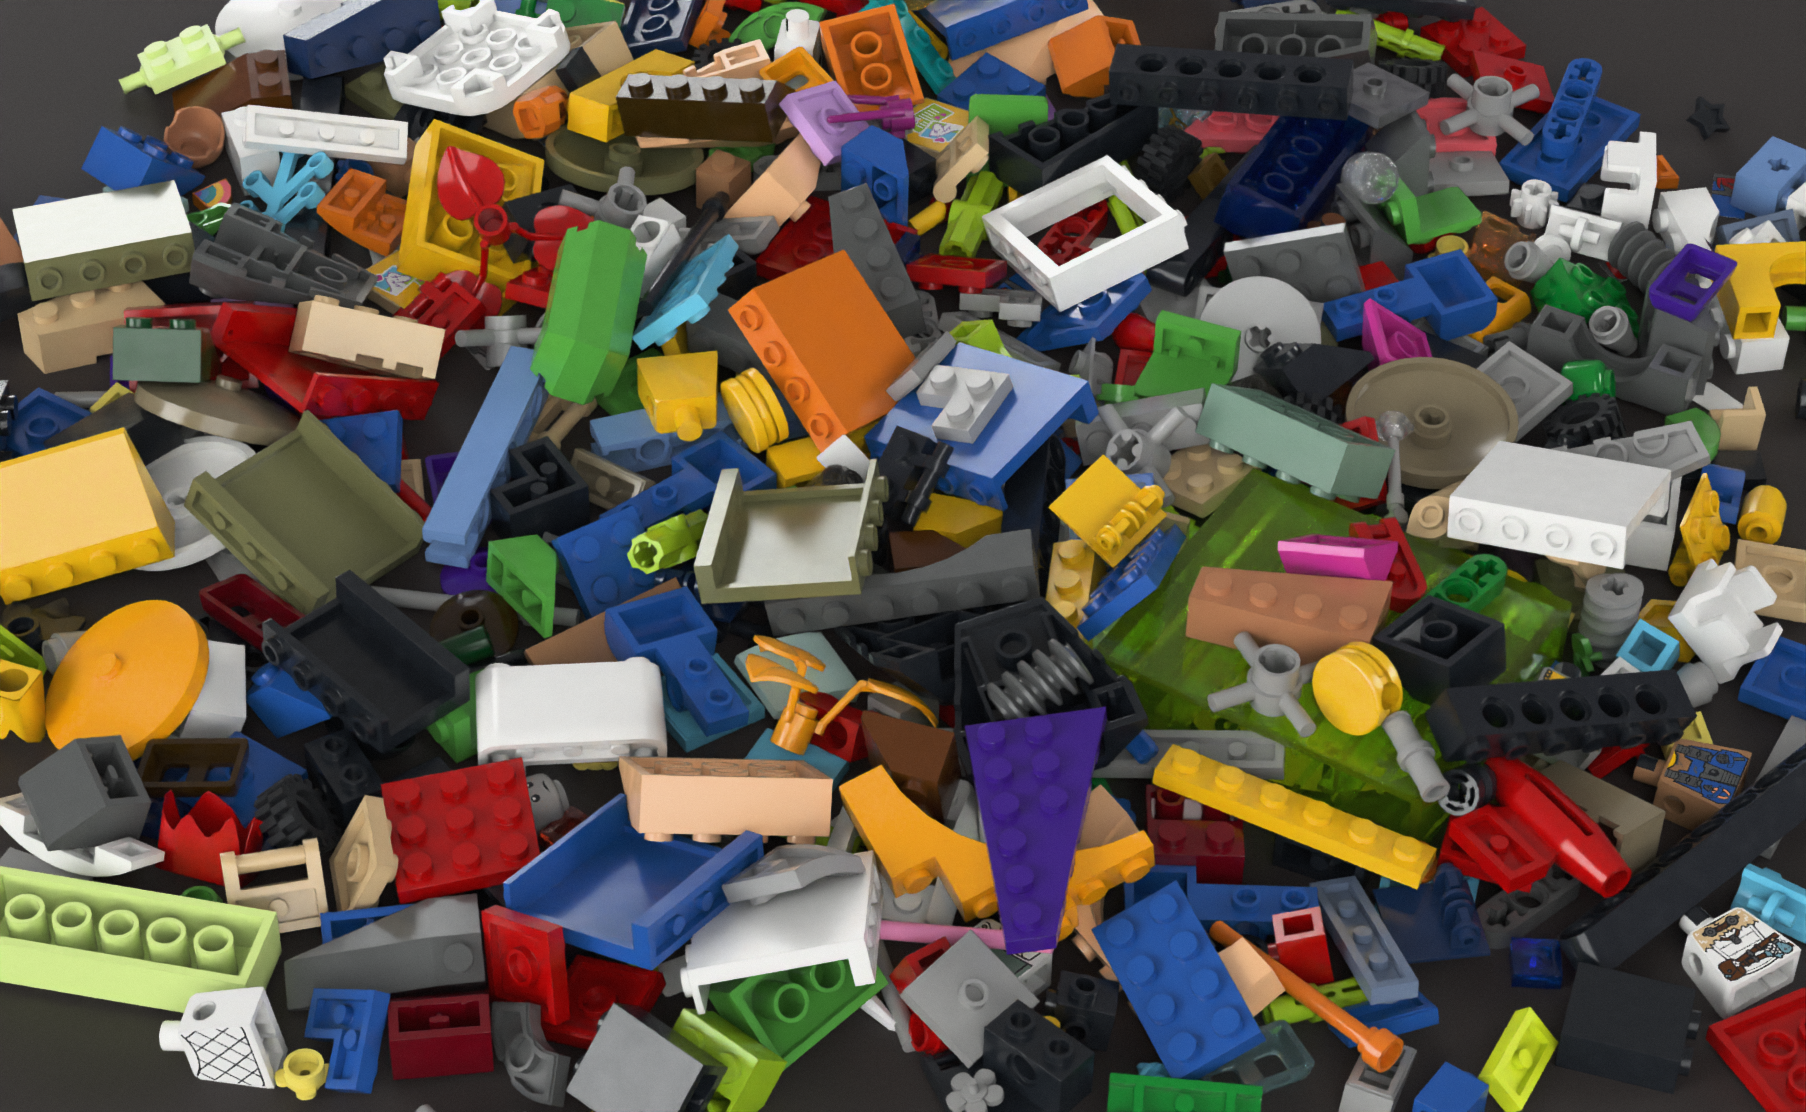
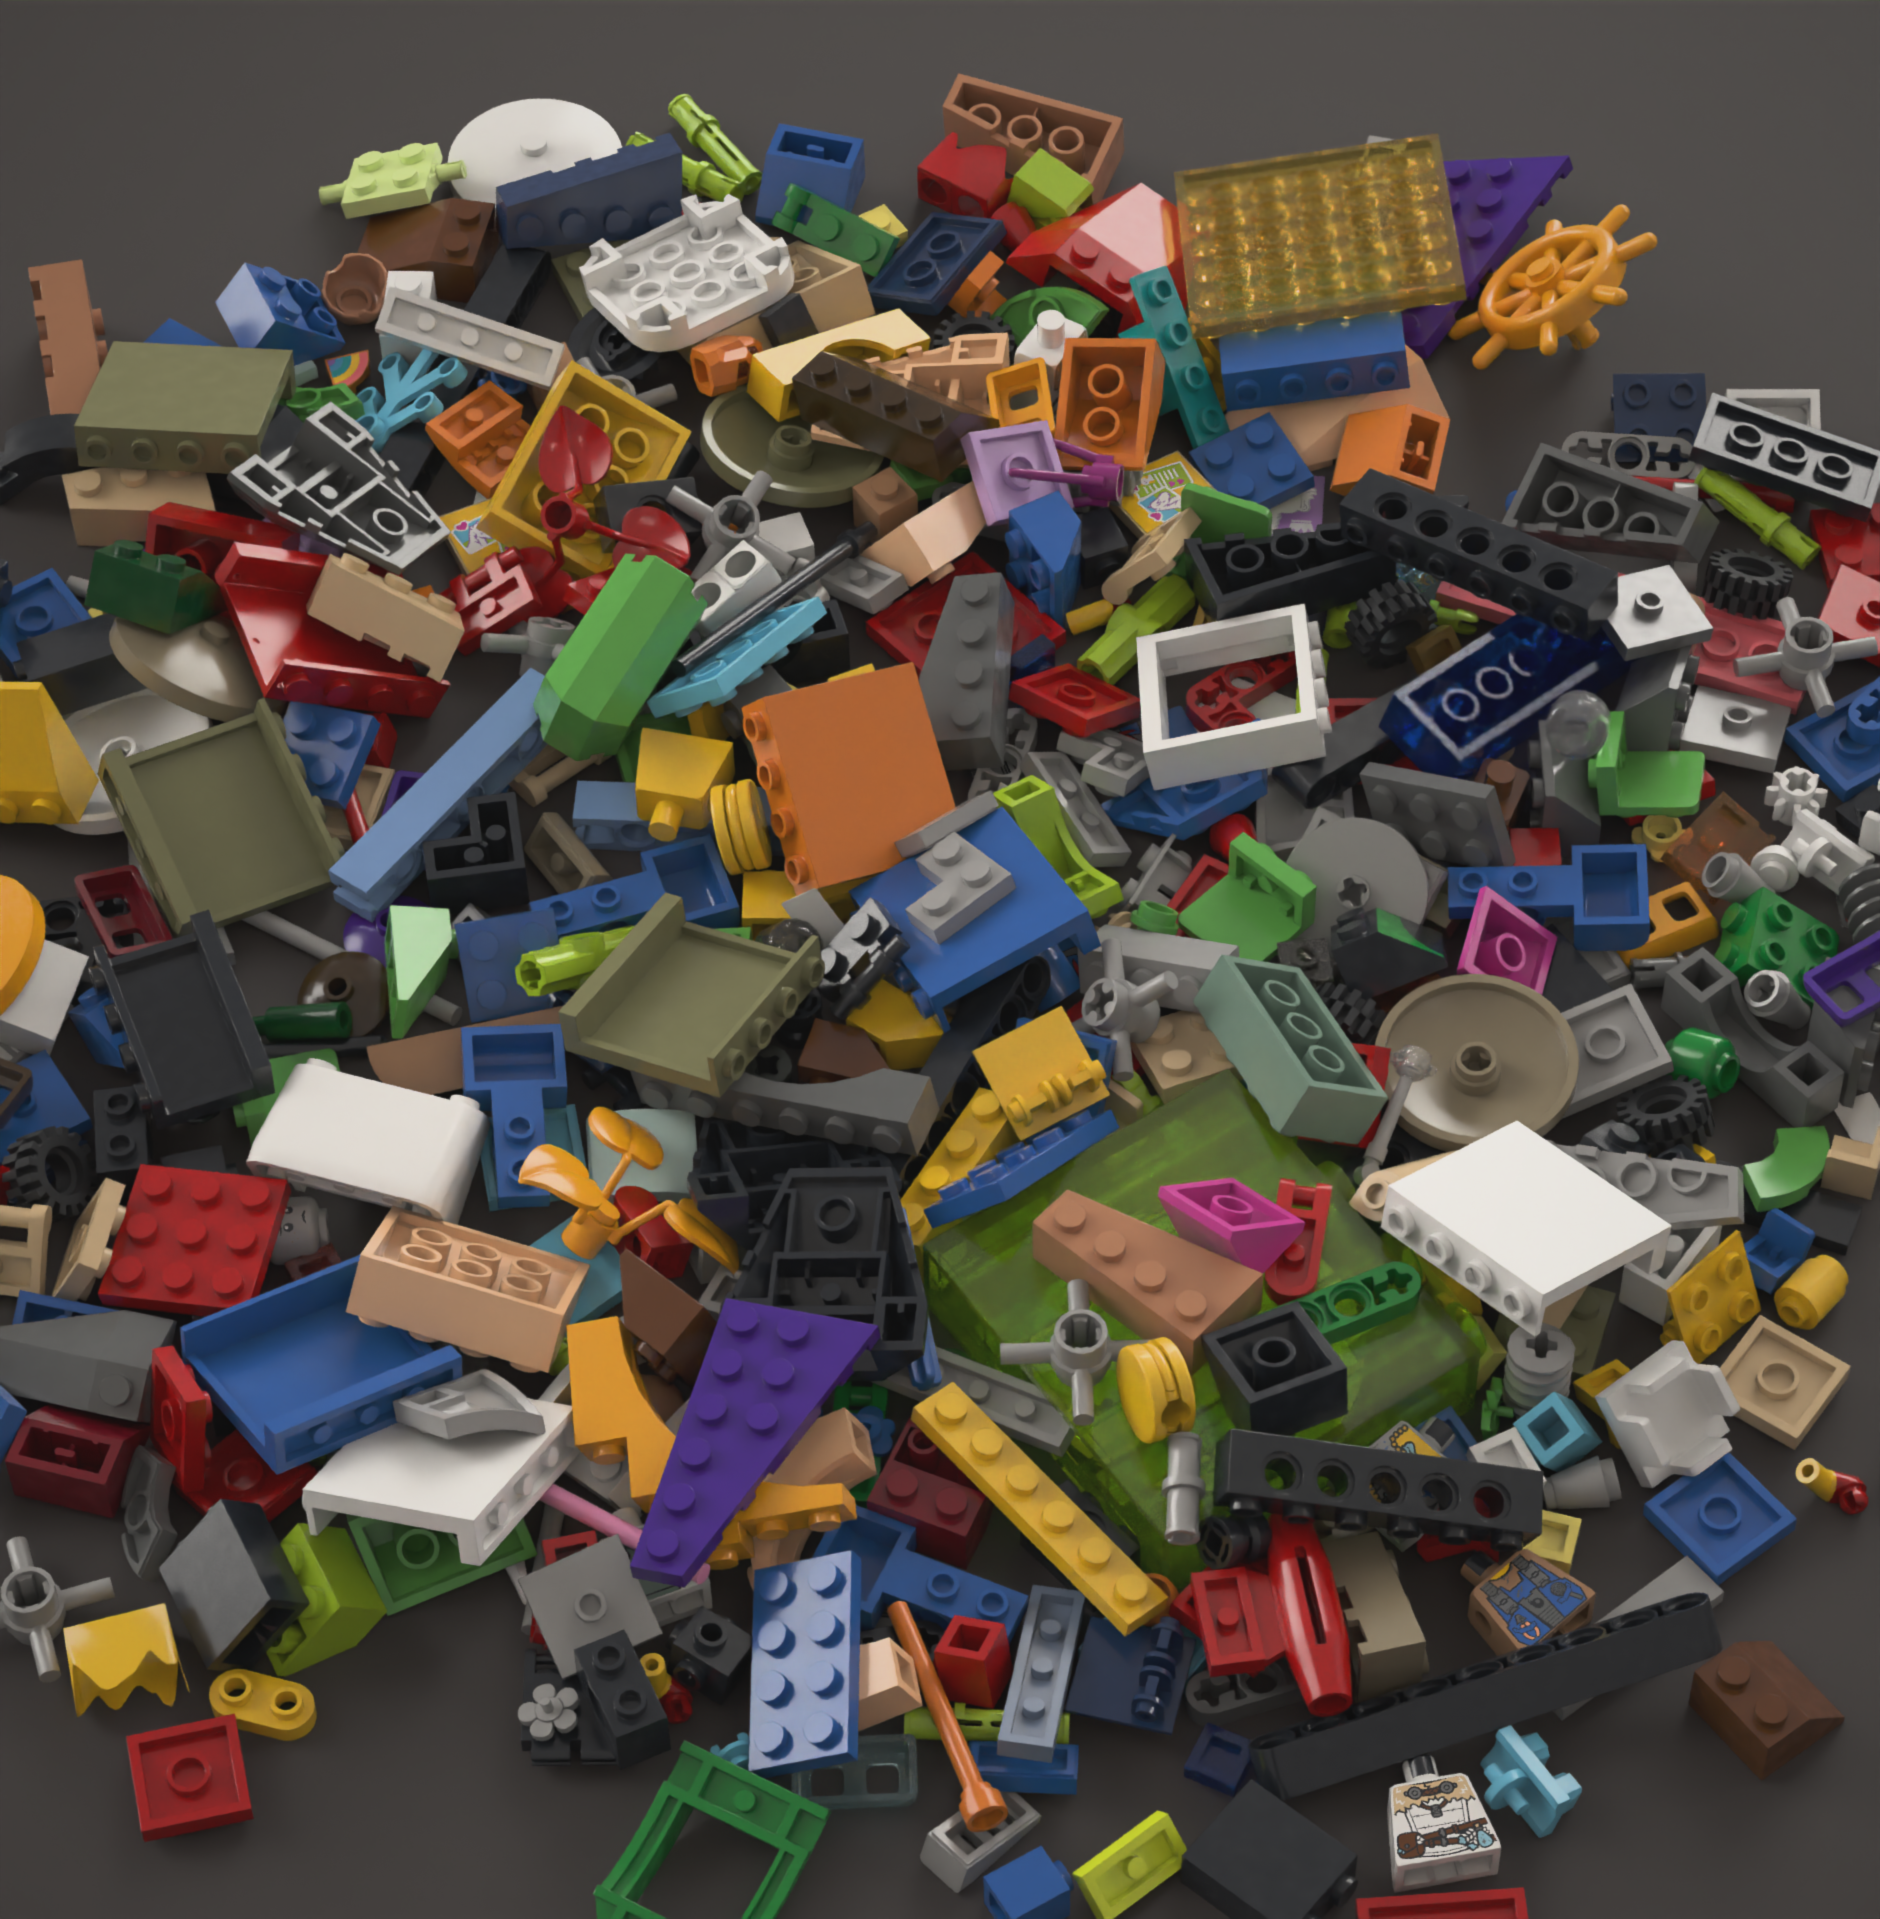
camera: 25 degrees right, 10 degrees up
(1039, 682) = (827, 1277): dark grey piece -> none

